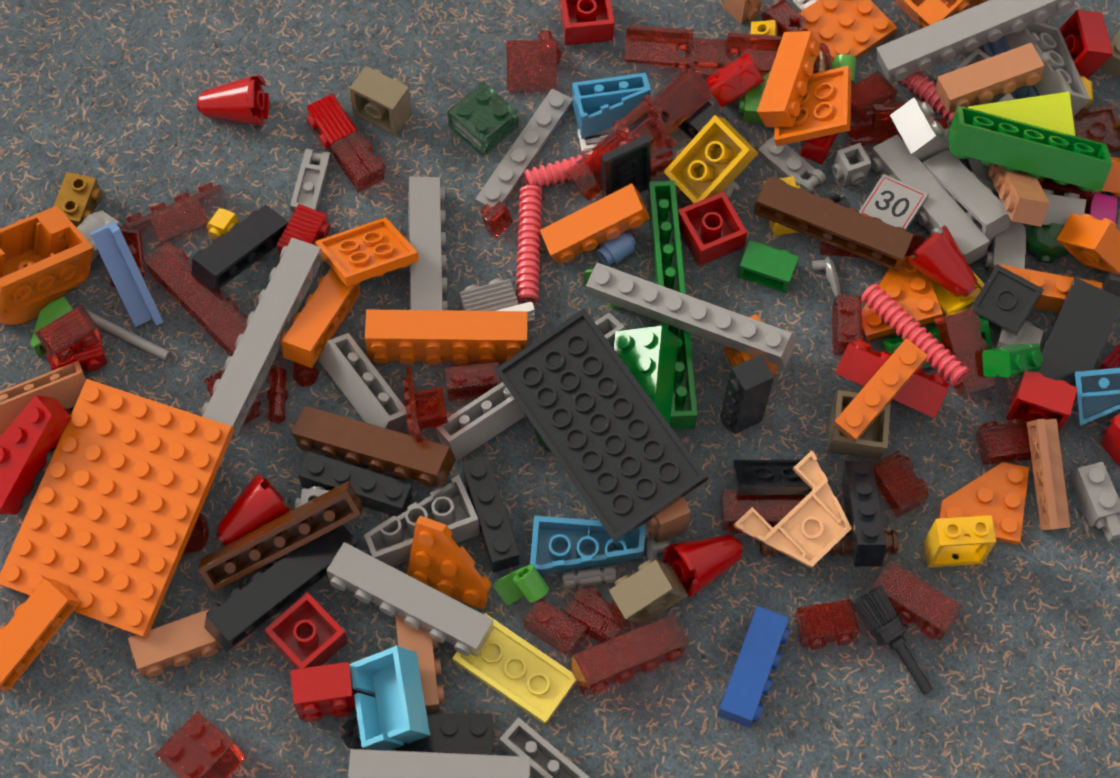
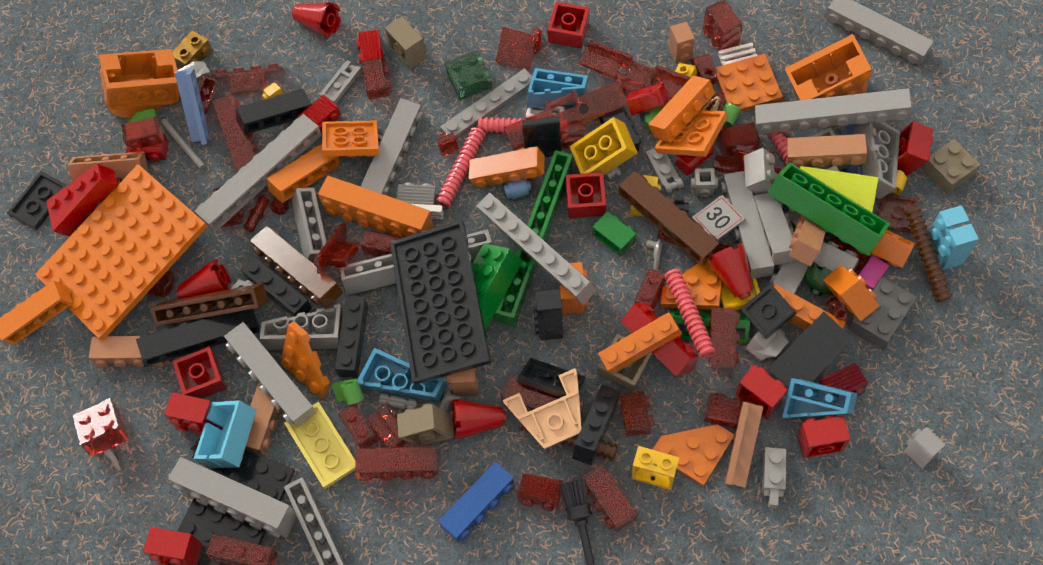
camera: 30 degrees right, 0 degrees up
(1011, 360) = (751, 354): green brick -> none
(1082, 269) = (836, 308): none -> clear red pin

